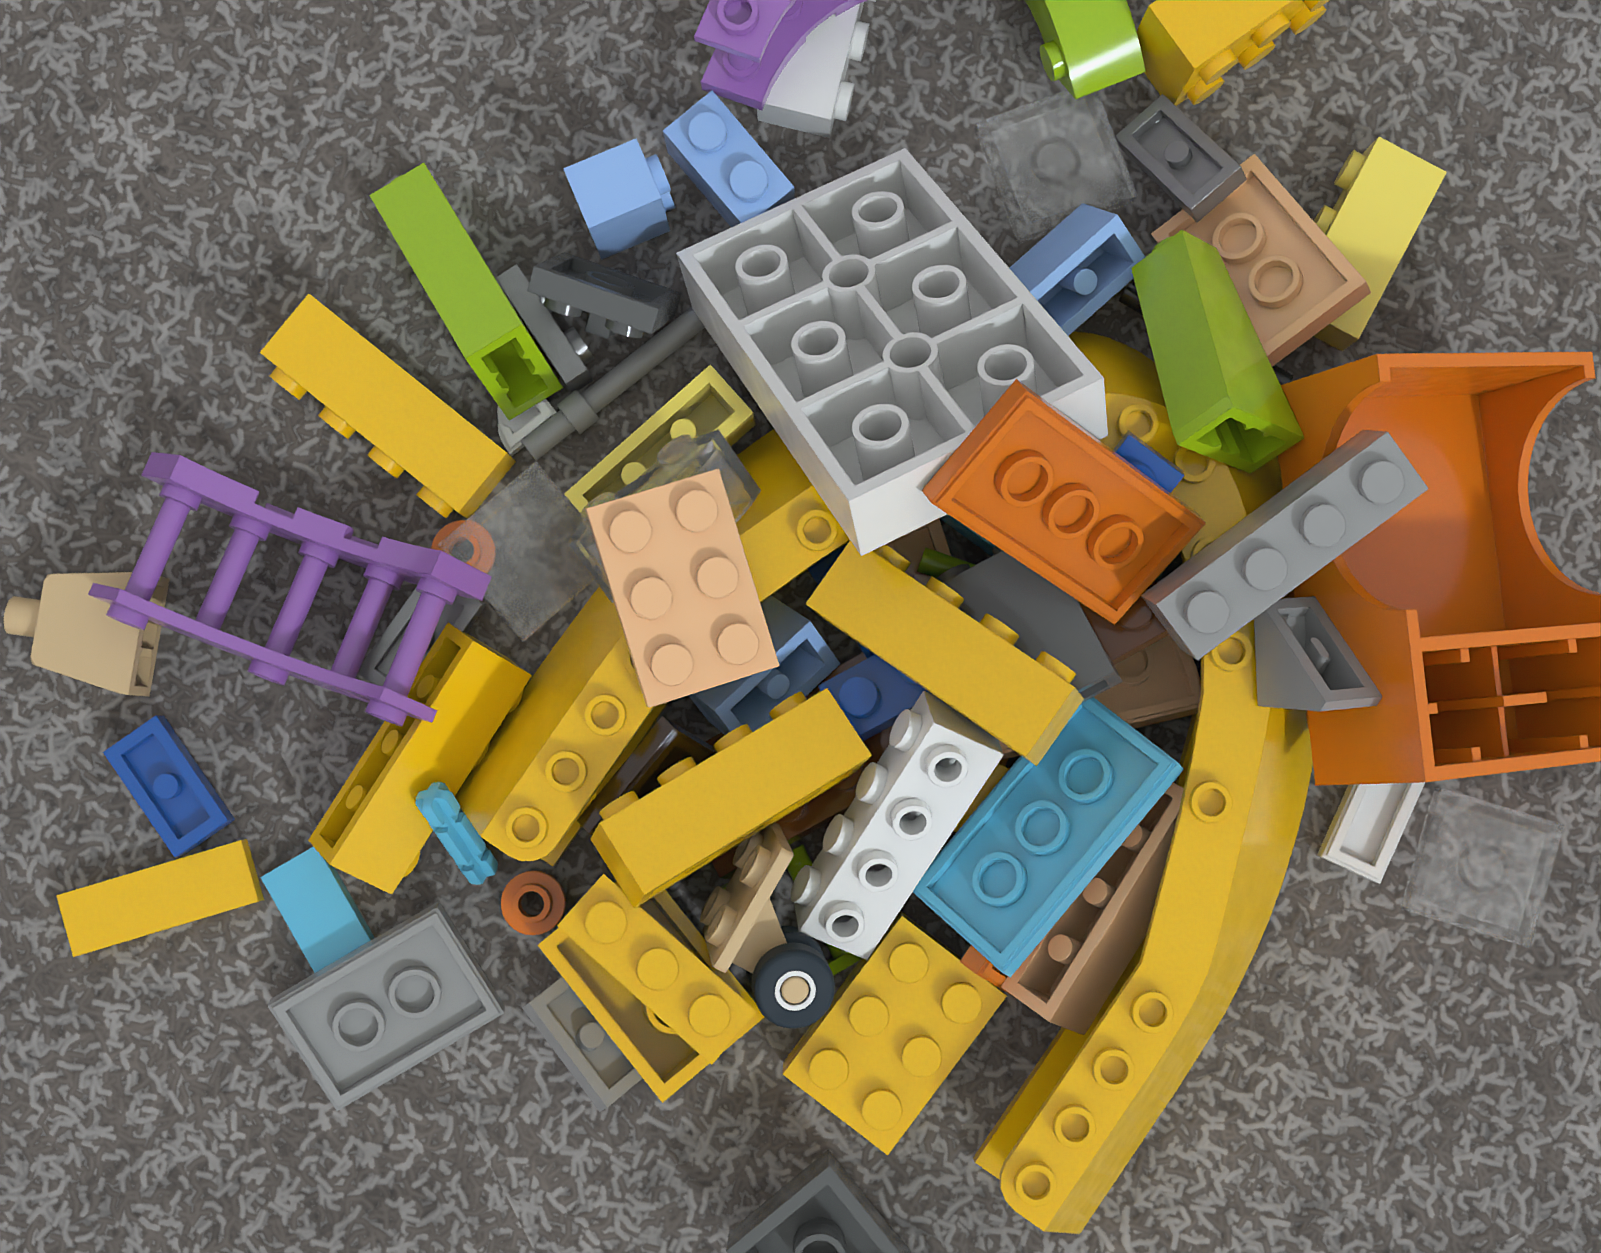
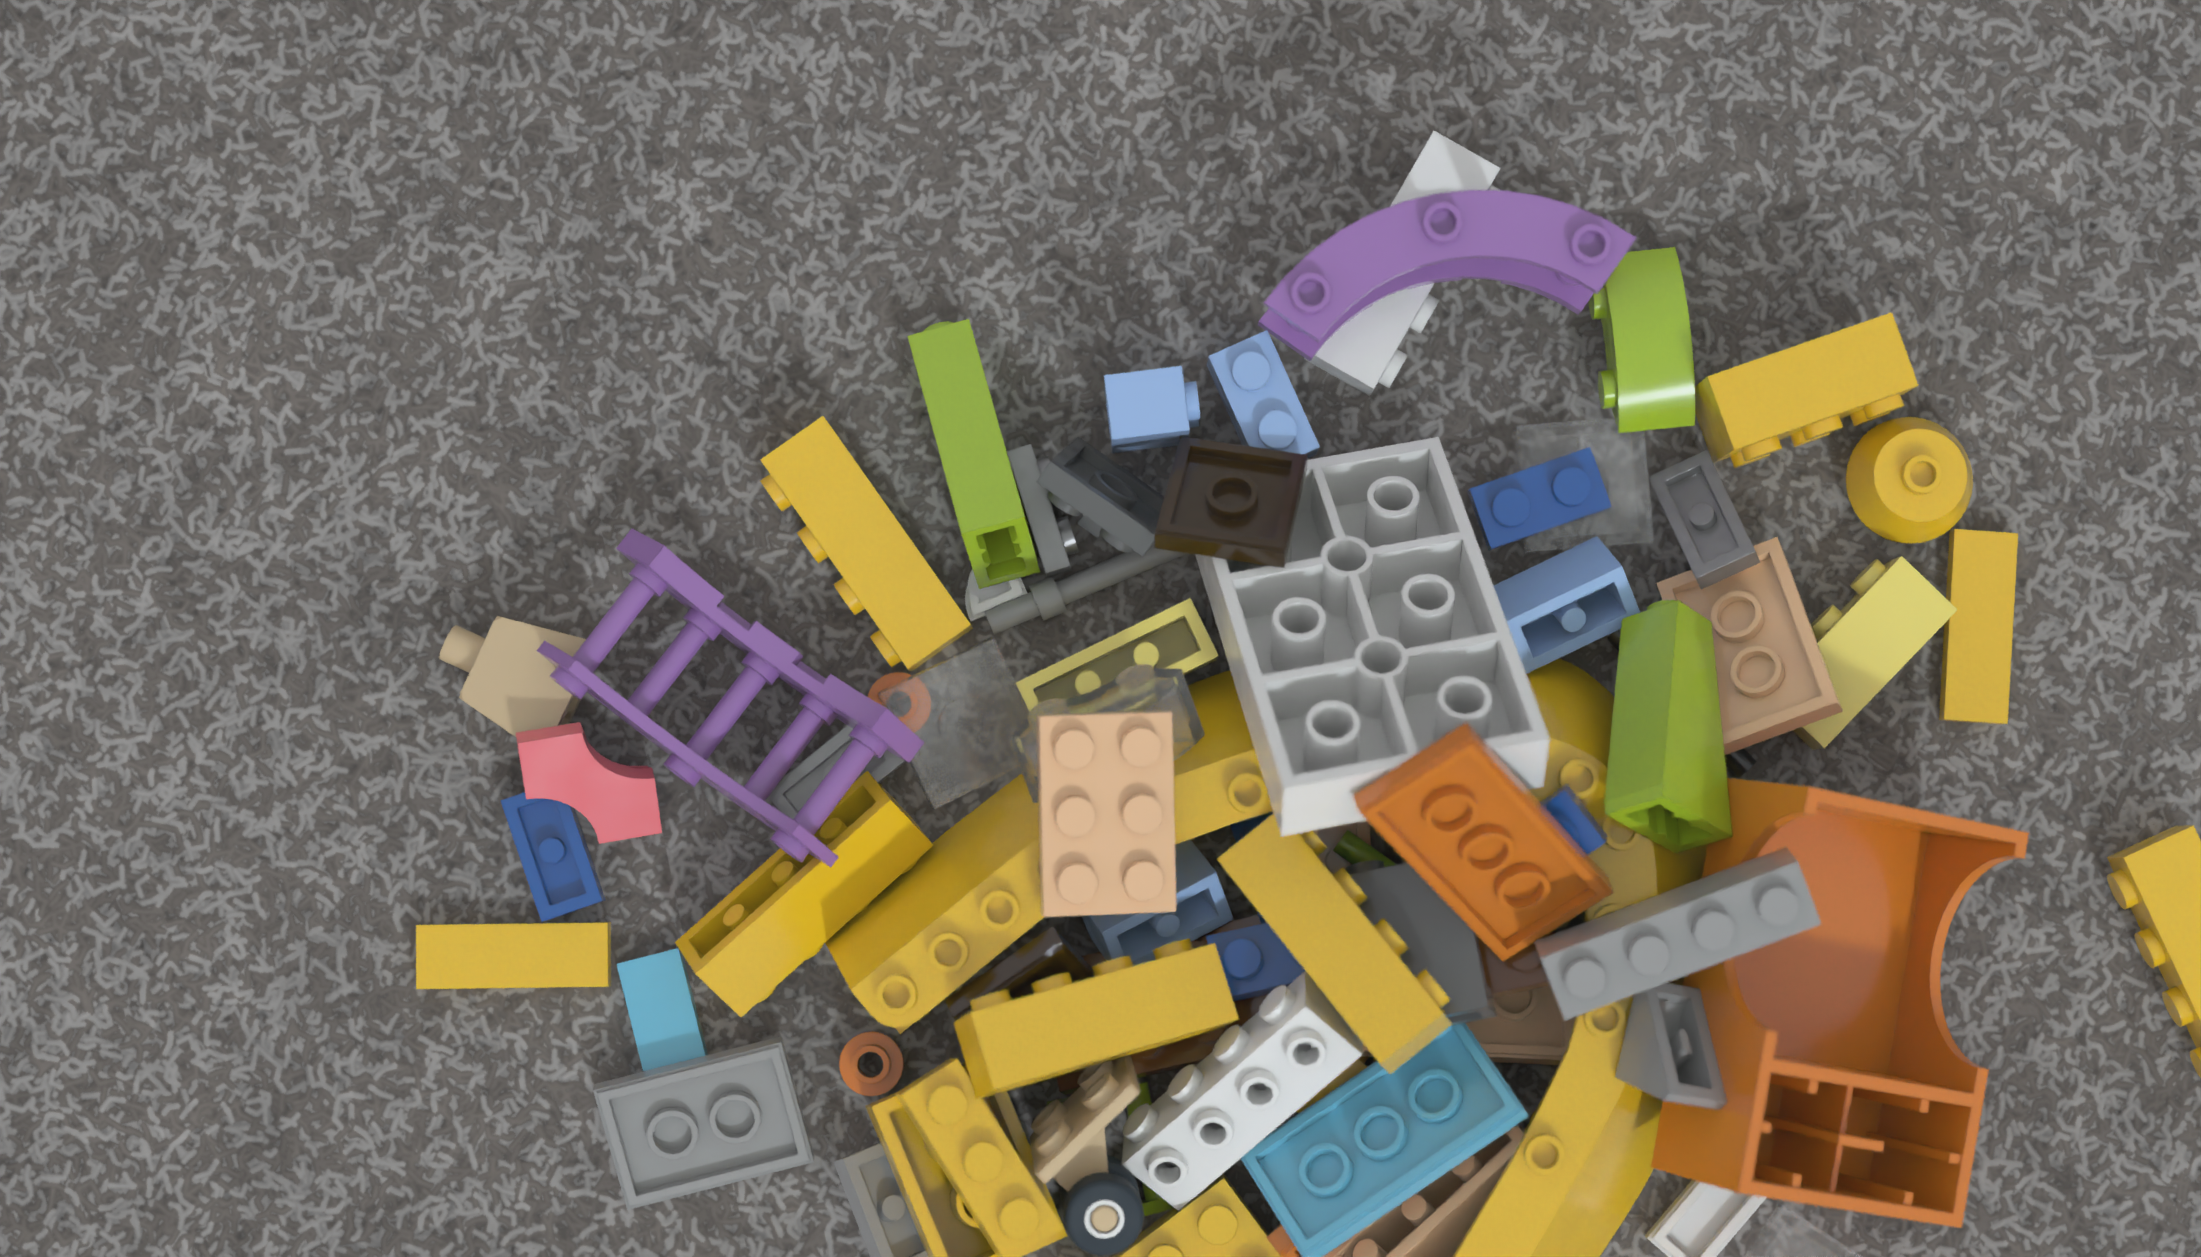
camera: 20 degrees right, 0 degrees up
(152, 701) = (612, 796): none -> coral tile
(456, 833) = (819, 976): medium azure axle -> none
(722, 256) = (1231, 502): none -> dark brown tile
(1019, 182) = (1539, 498): none -> blue plate
(1362, 68) = (1909, 480): none -> yellow cone
(1470, 198) = (1981, 630): none -> yellow tile

